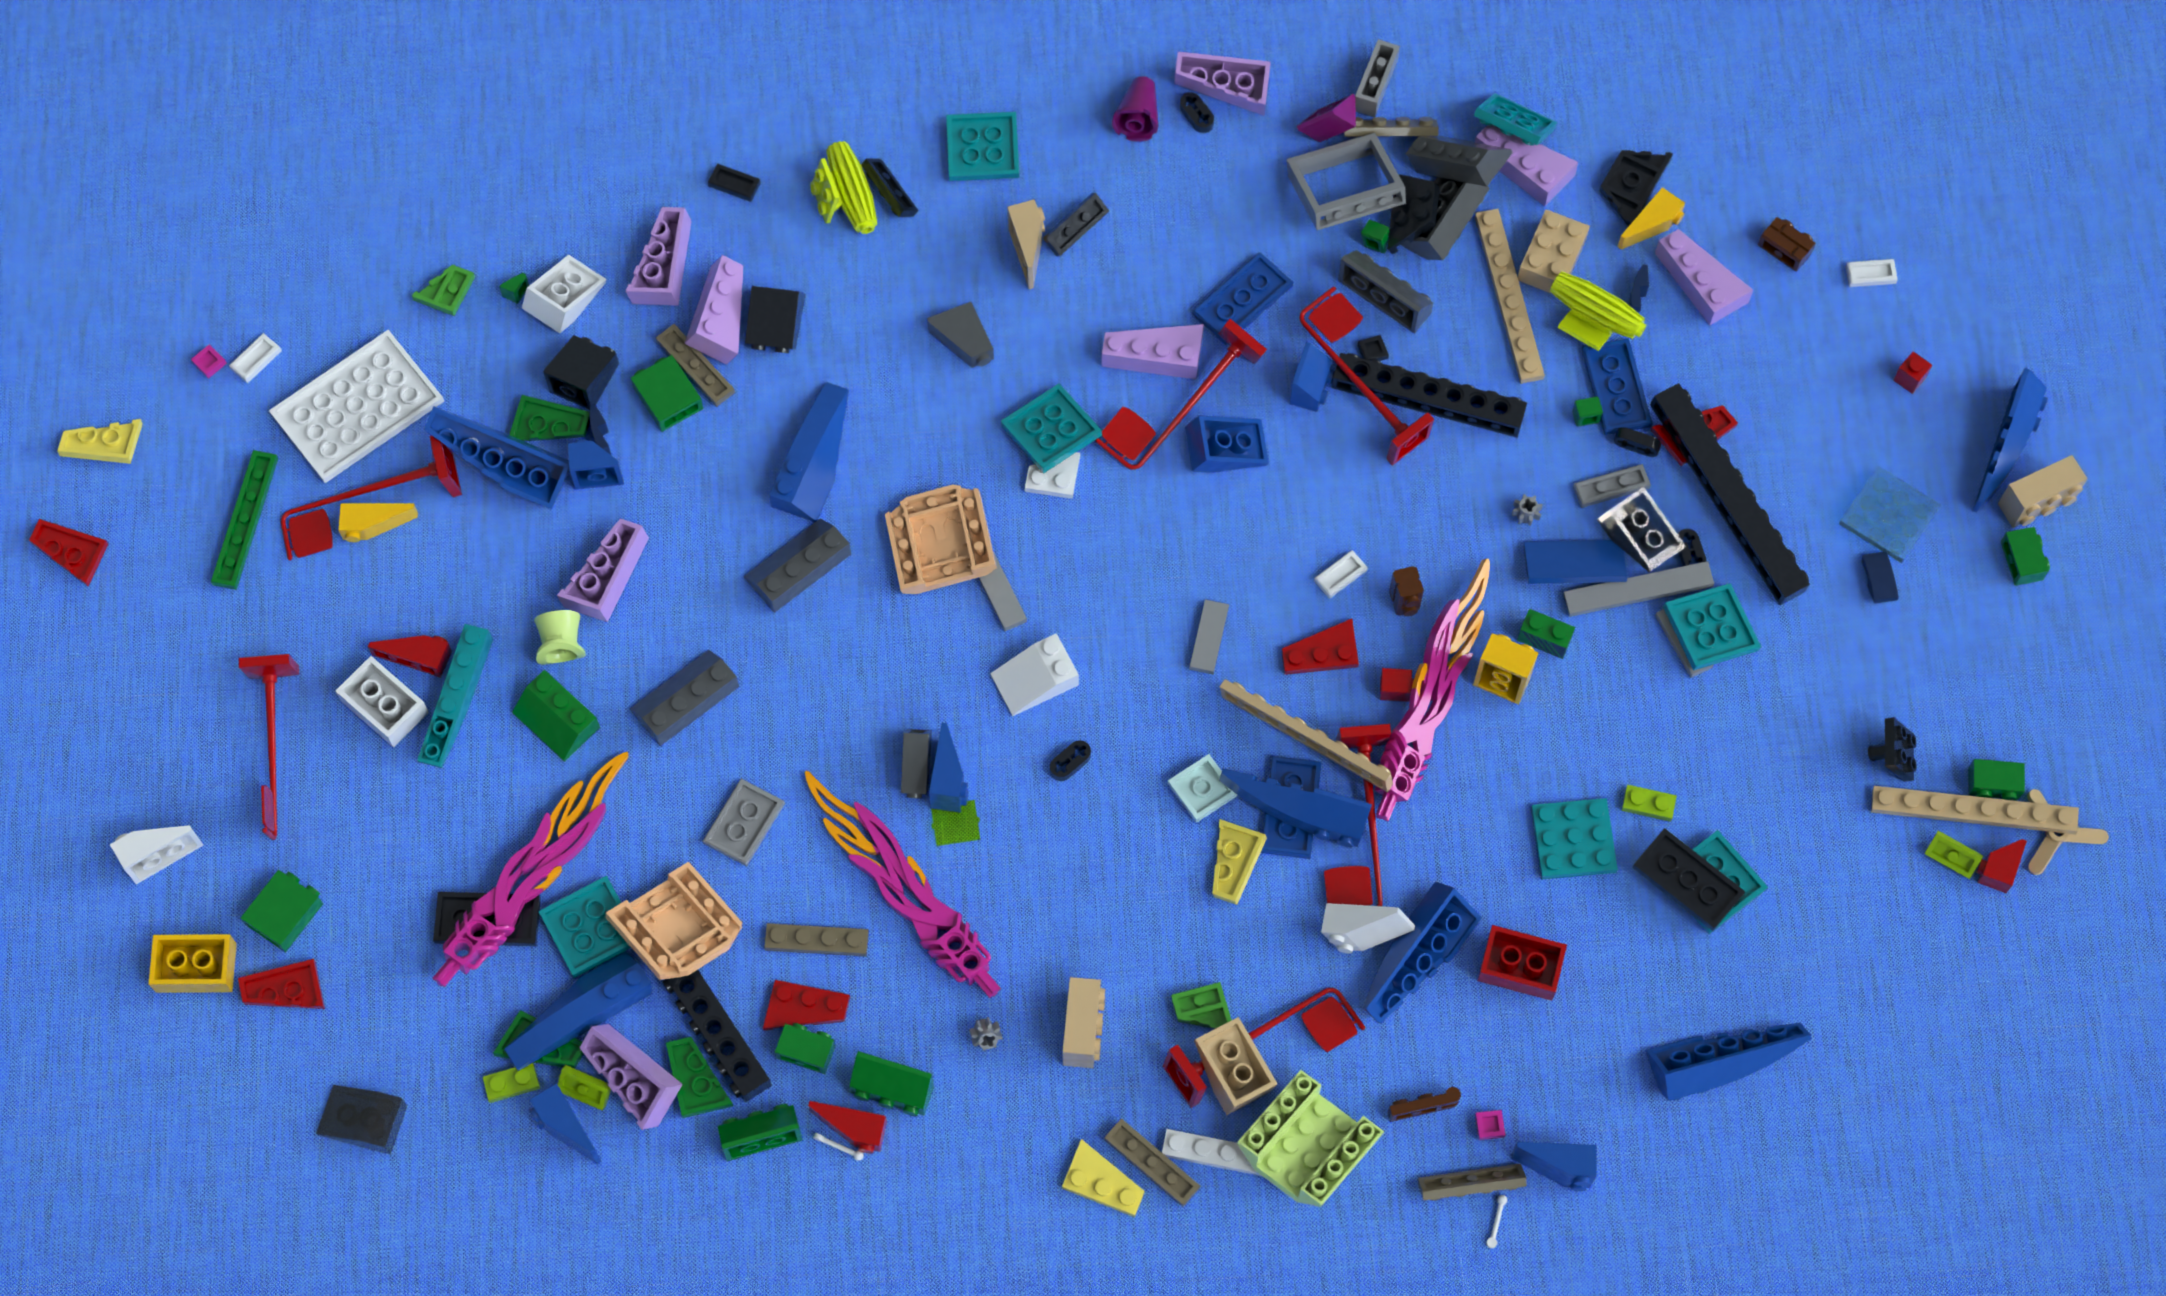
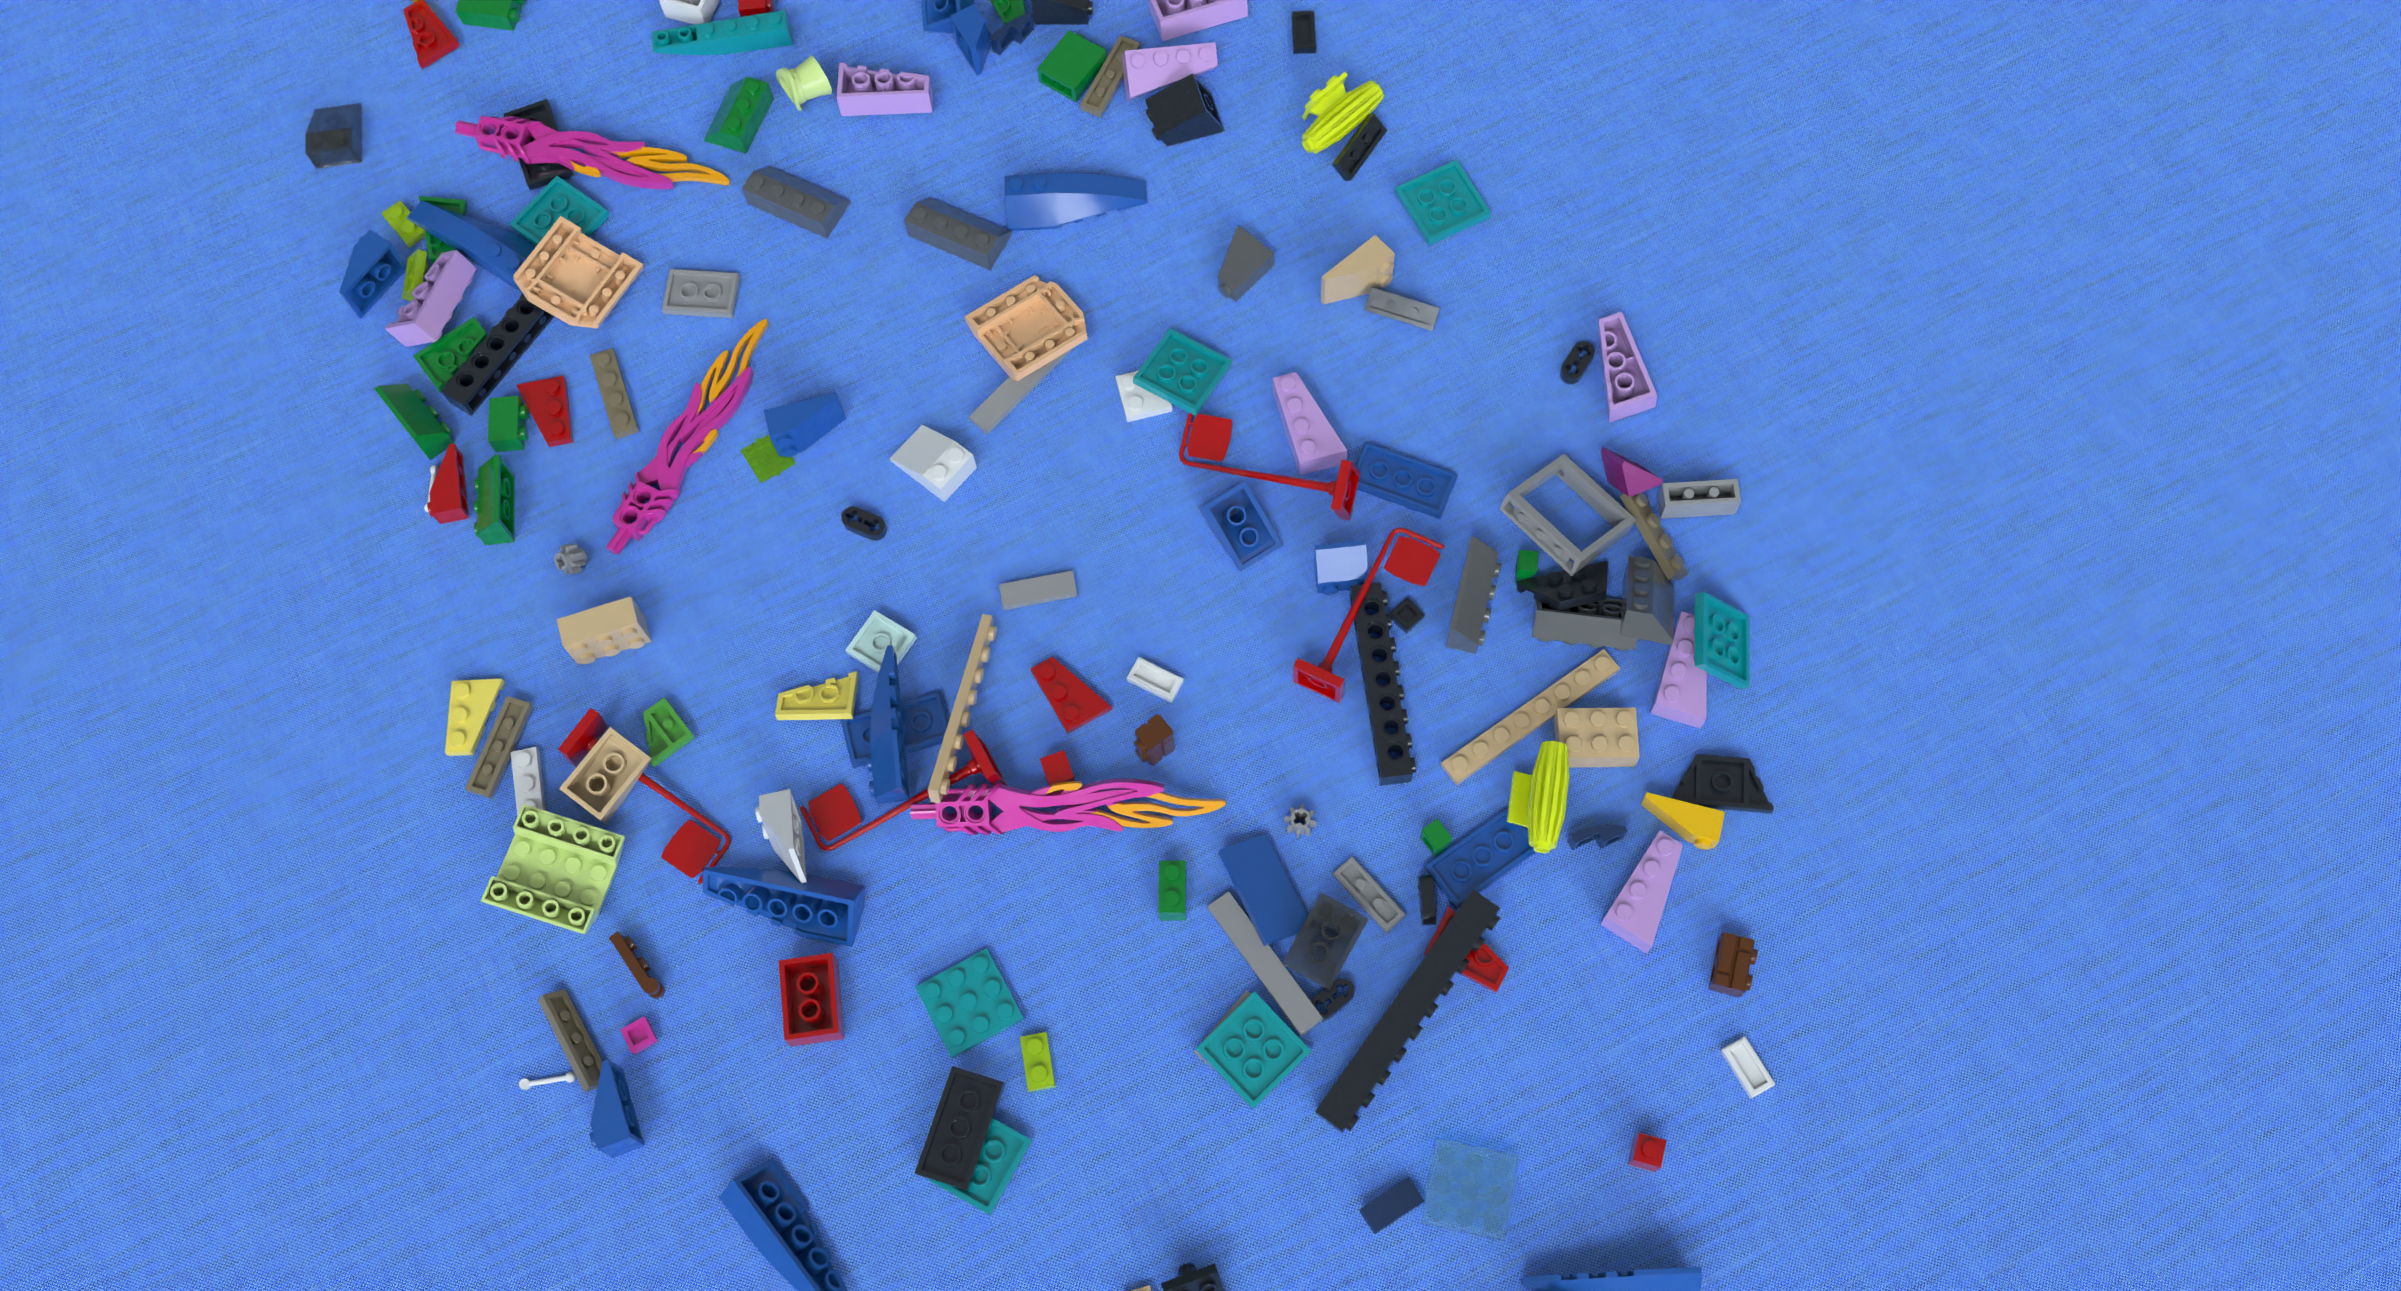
camera: 70 degrees right, 0 degrees up
(916, 762) = (808, 386): dark grey slope -> none
(1137, 111) = (1548, 308): magenta cone -> none
(1505, 668) = (1107, 860): yellow brick -> none

